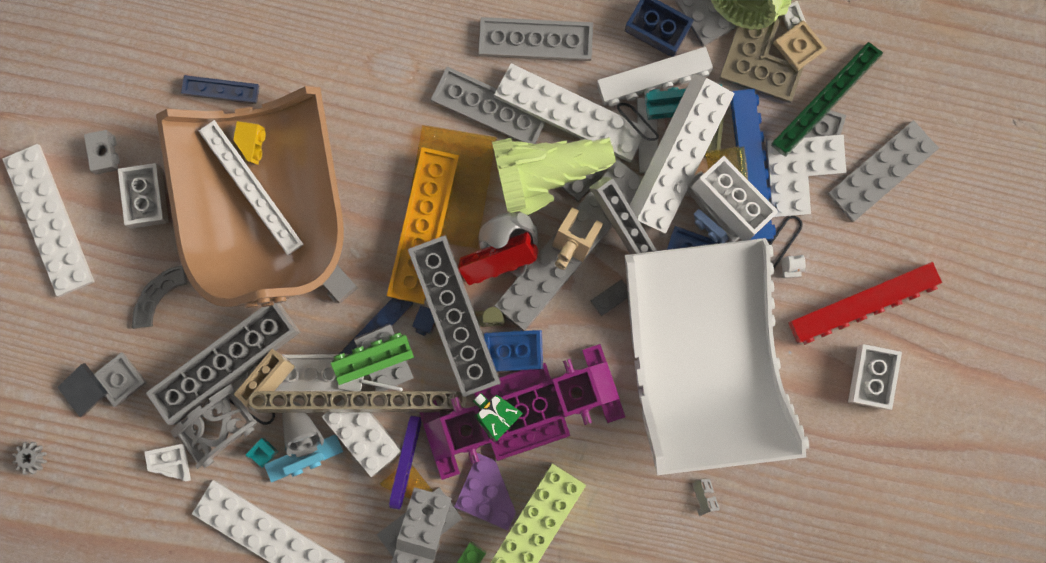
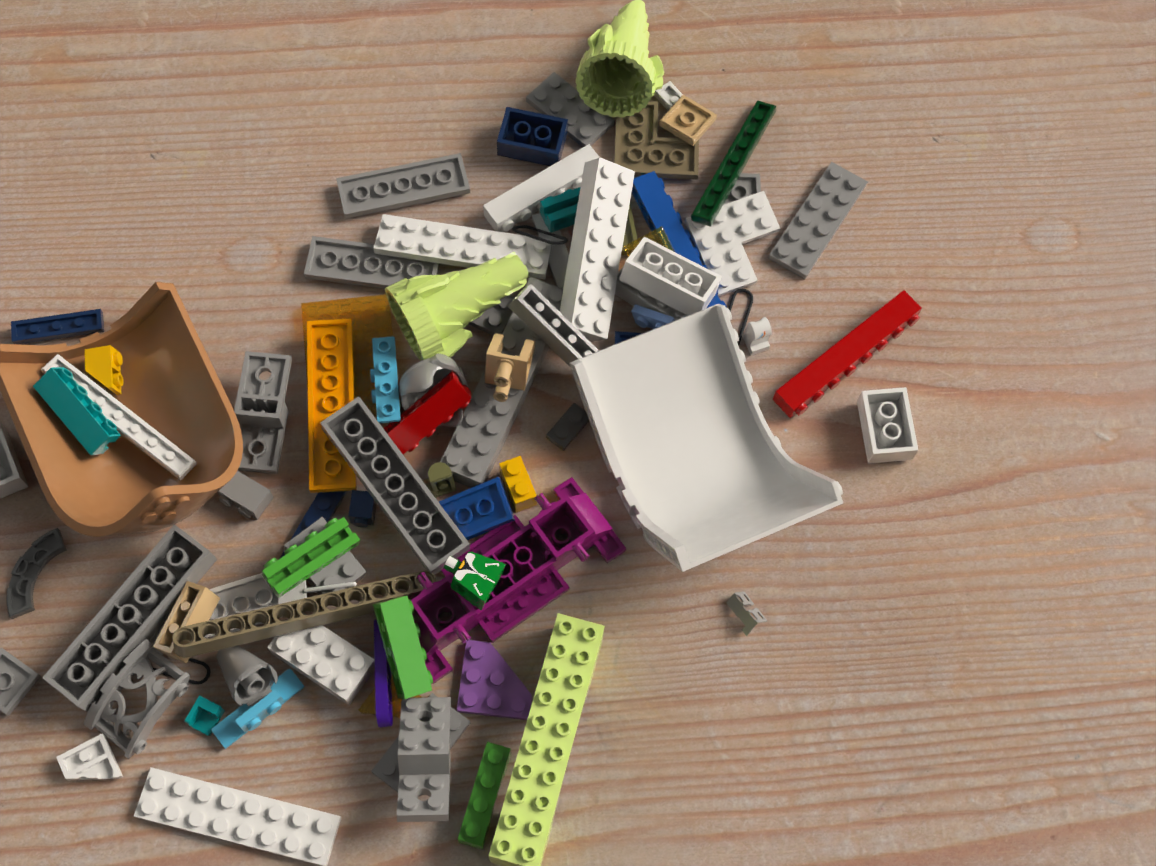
camera: 25 degrees left, 15 degrees down
(218, 176) = (77, 410): none -> teal brick
(366, 214) = (262, 410): none -> light grey bracket
(425, 451) = (403, 647): none -> bright green brick
(472, 220) = (386, 380): none -> medium azure bracket
(555, 337) = (518, 484): none -> yellow brick

